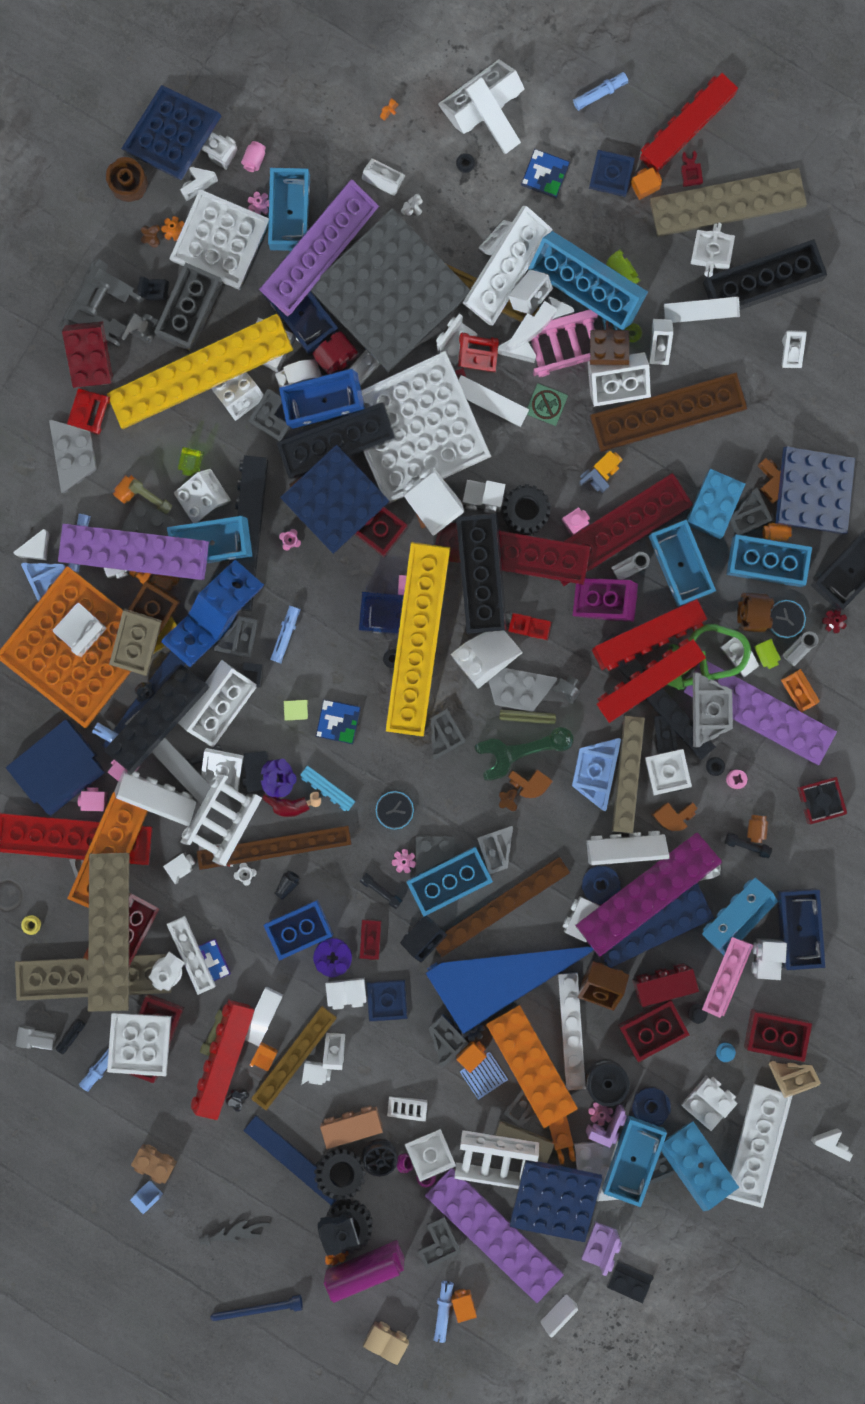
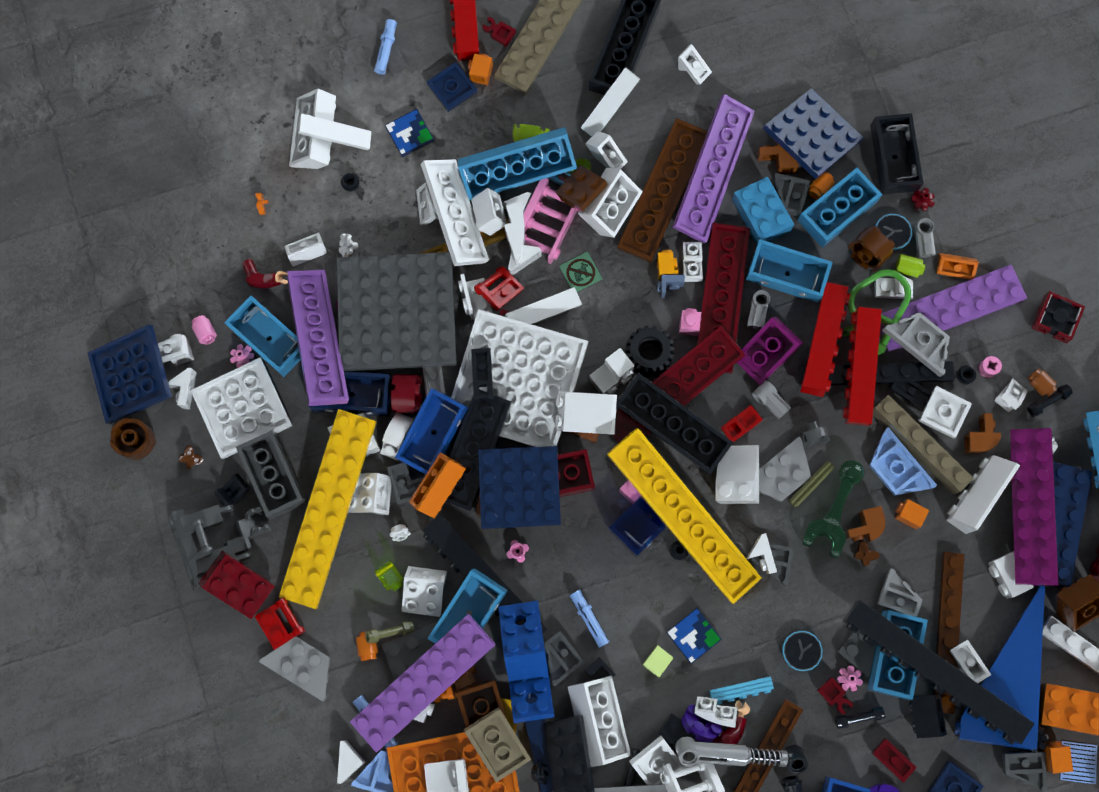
camera: 50 degrees left, 10 degrees down
(172, 228) = (200, 436): orange plant -> none
(228, 440) = (399, 532): none -> white plate
(248, 786) = (694, 752): none -> piece
(284, 437) = (437, 485): none -> orange brick
(292, 777) = (709, 710): none -> white slope
(328, 164) = (259, 280): none -> dark red arm
(381, 856) = (833, 693): none -> dark red plate
(396, 397) = (482, 374): none -> black plate
(443, 718) = (762, 549): none -> white slope
(458, 917) = (937, 671): none -> black brick
(488, 938) = (970, 662): none -> white slope
(567, 630) = (767, 395): none -> light grey piece
(567, 808) = (911, 513): none -> orange brick
(596, 874) = (1002, 544): dark blue plate -> none
(628, 483) = (692, 261): none -> white slope
(712, 249) = (572, 61): white plate -> none
(718, 436) = (713, 169): none -> medium lavender plate
(728, 813) = (1011, 396): none -> white slope

